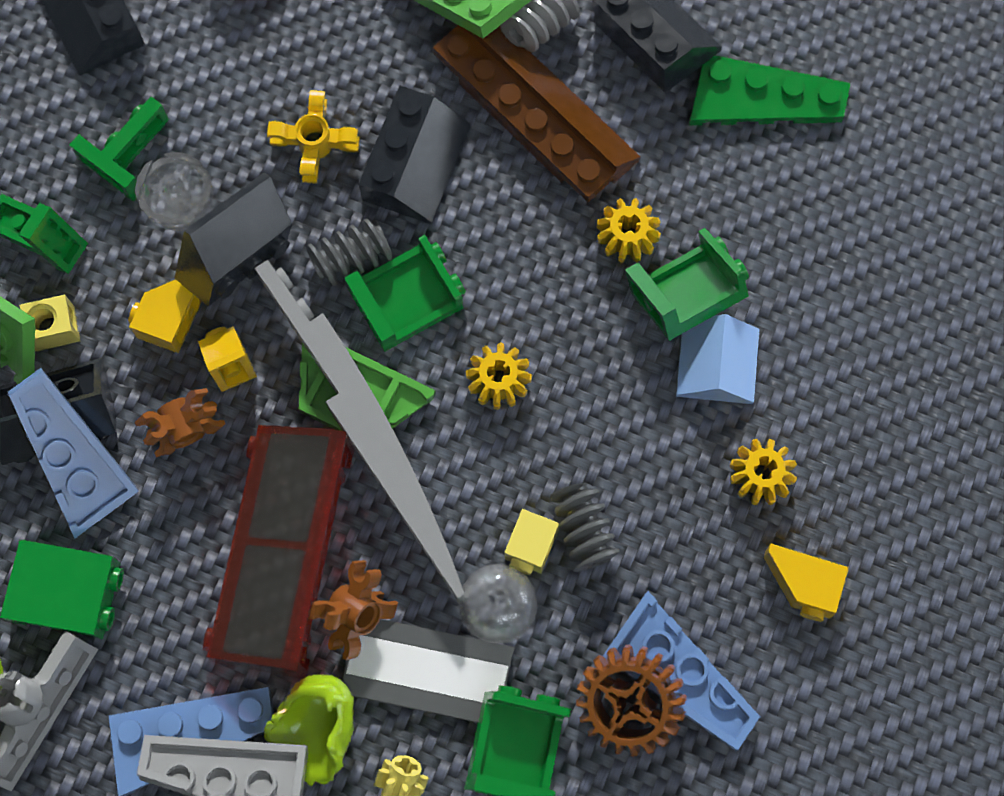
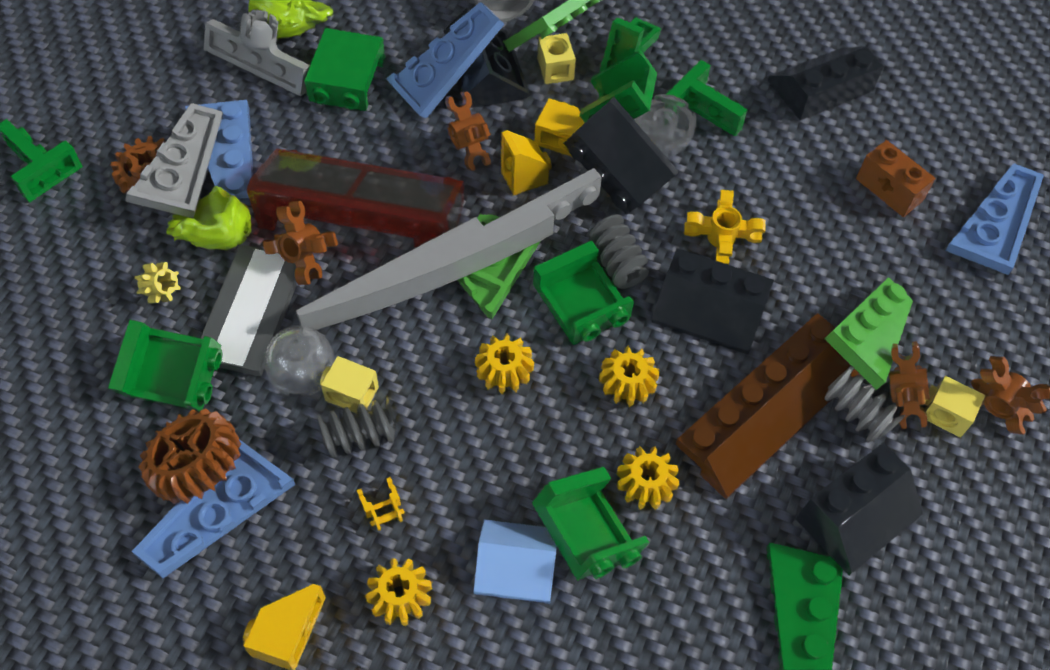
camera: 85 degrees right, 15 degrees down
(131, 236) = (629, 82): none -> green panel
(516, 256) = (632, 364): none -> yellow gear
(660, 487) = (369, 509): none -> yellow piece

